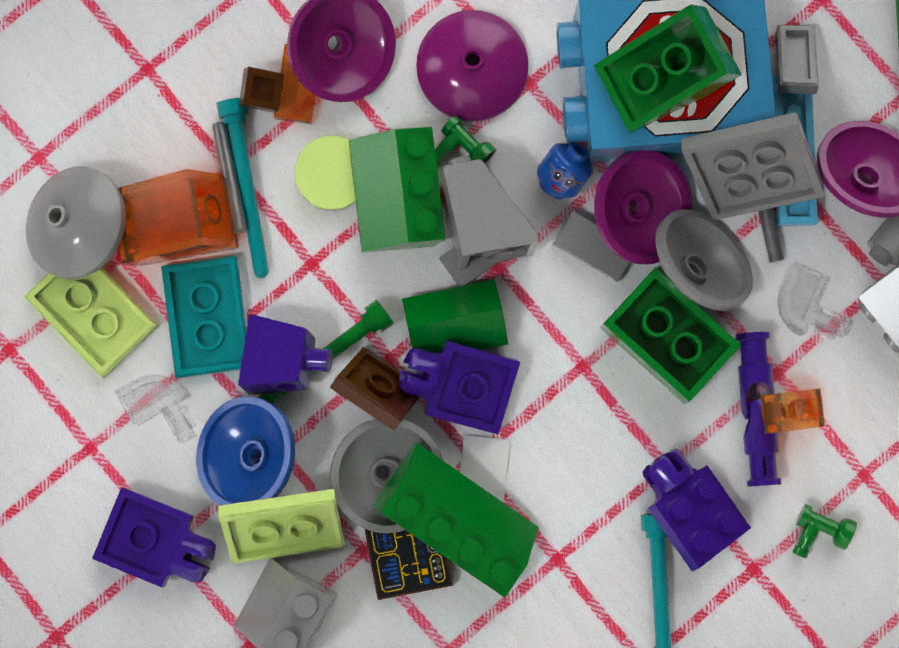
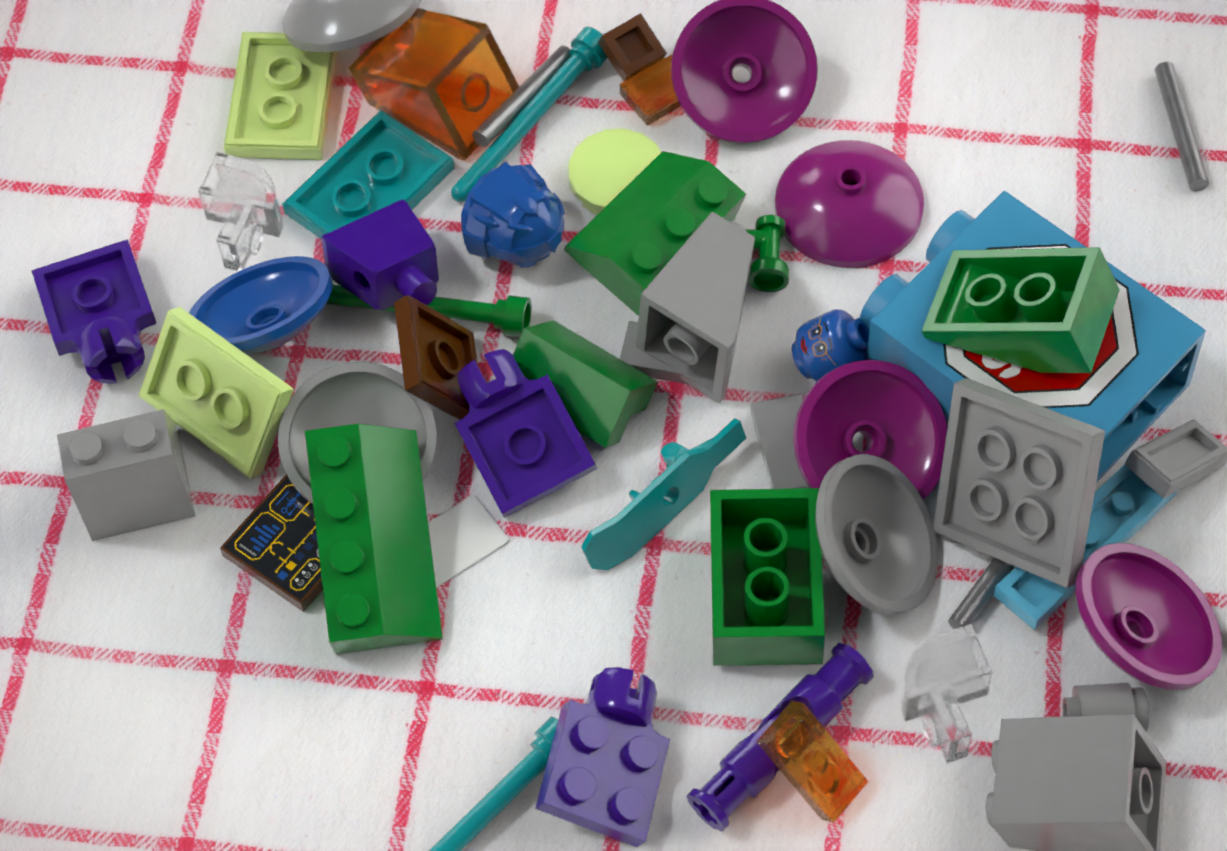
camera: 50 degrees right, 25 degrees down
(320, 263) = (512, 216): none -> blue helmet
(567, 339) = (662, 500): none -> teal piece

